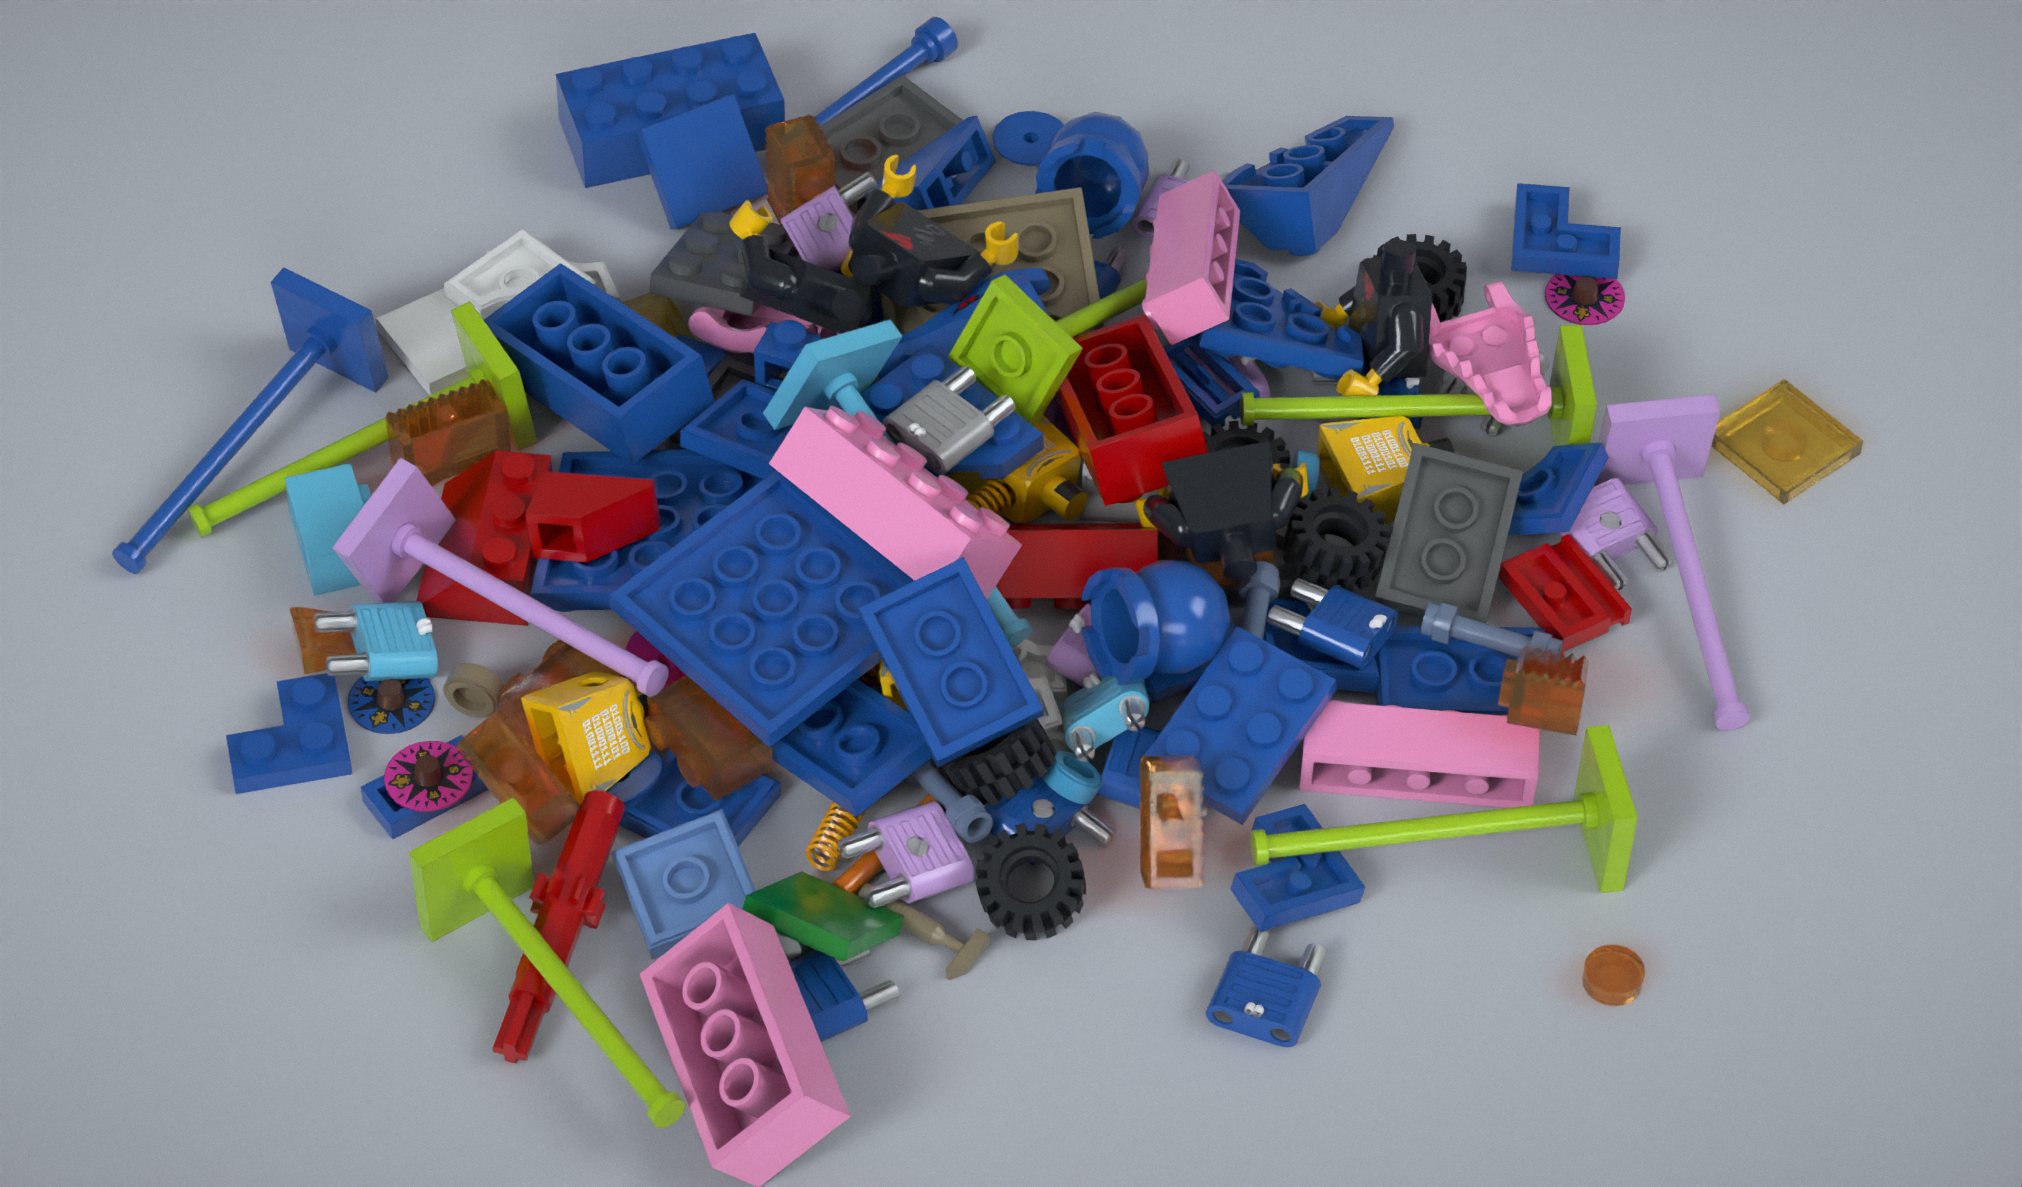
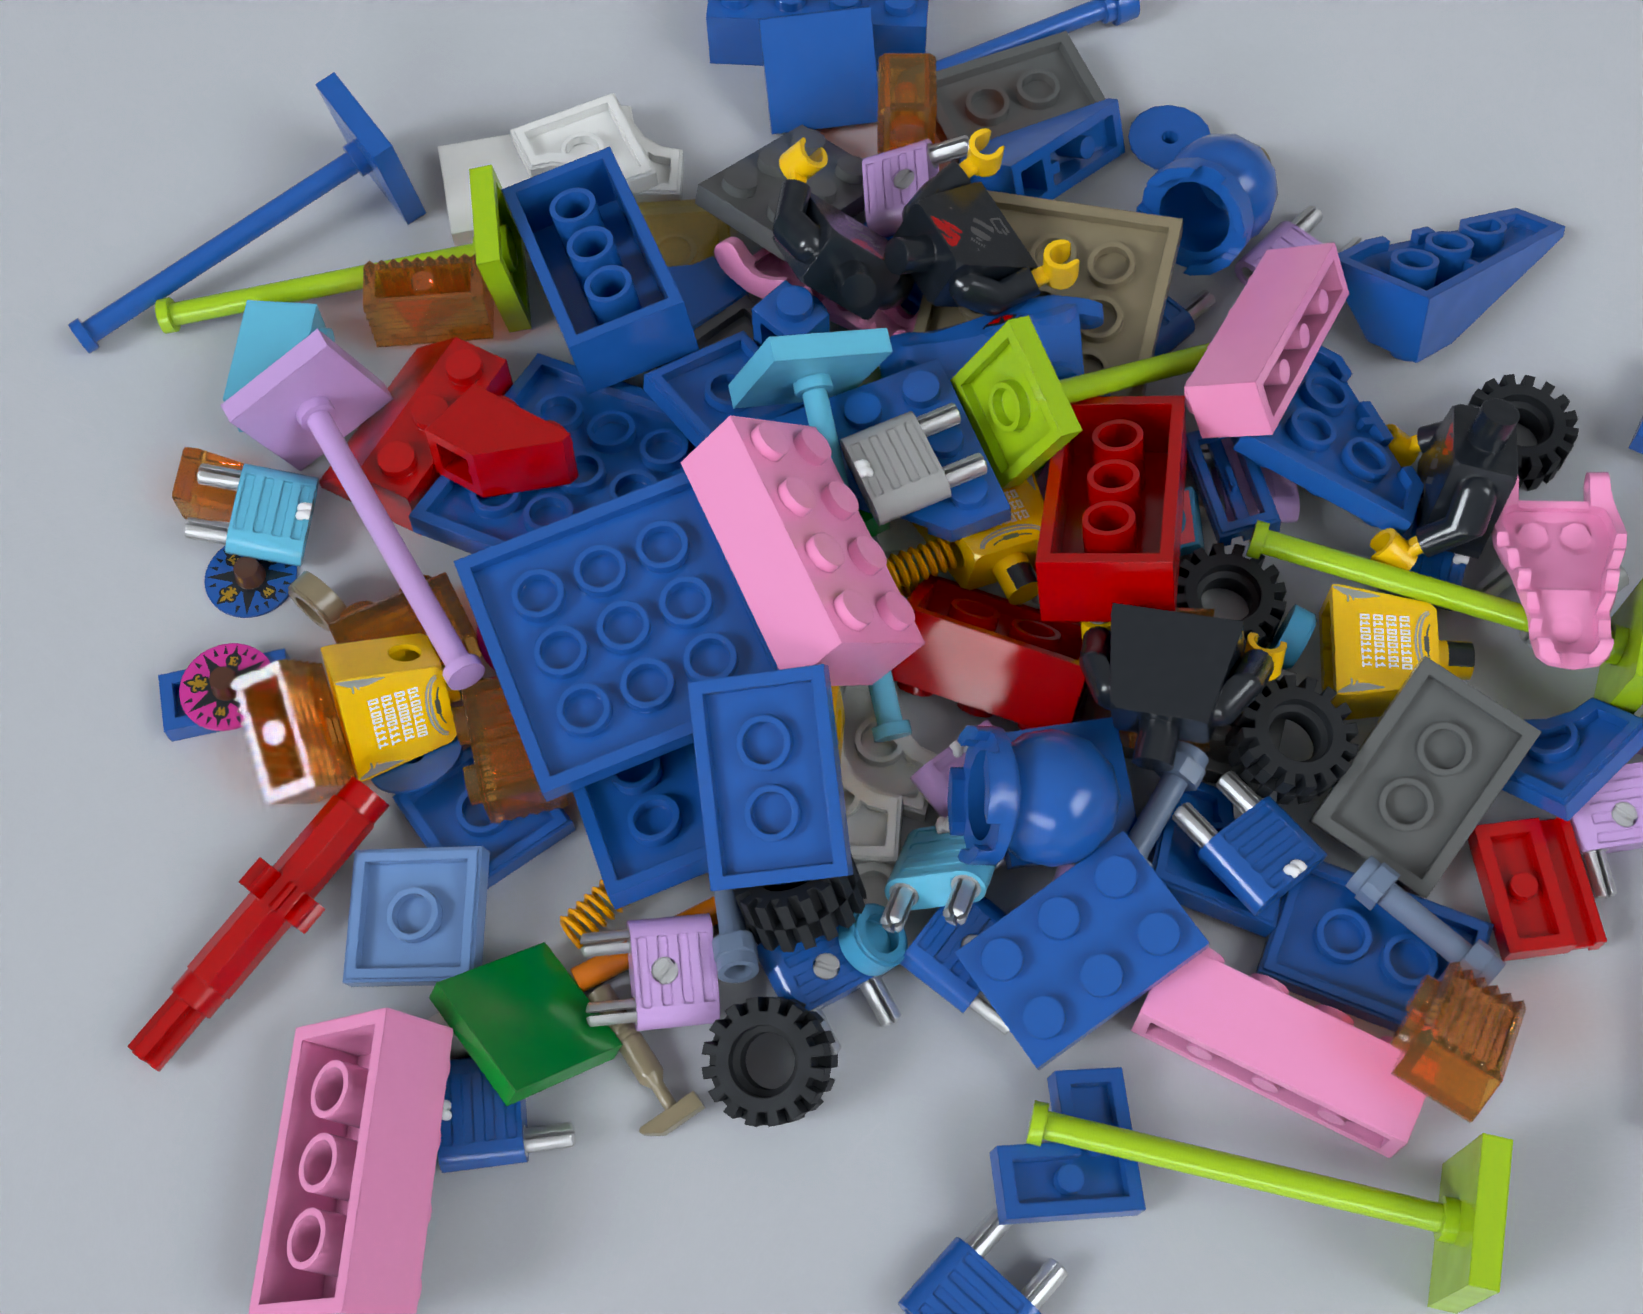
camera: 25 degrees right, 15 degrees up
(303, 749) = (133, 608): blue plate -> none
(481, 871) = (188, 835): lime tile -> none
(1171, 822) = (949, 1053): clear orange brick -> none

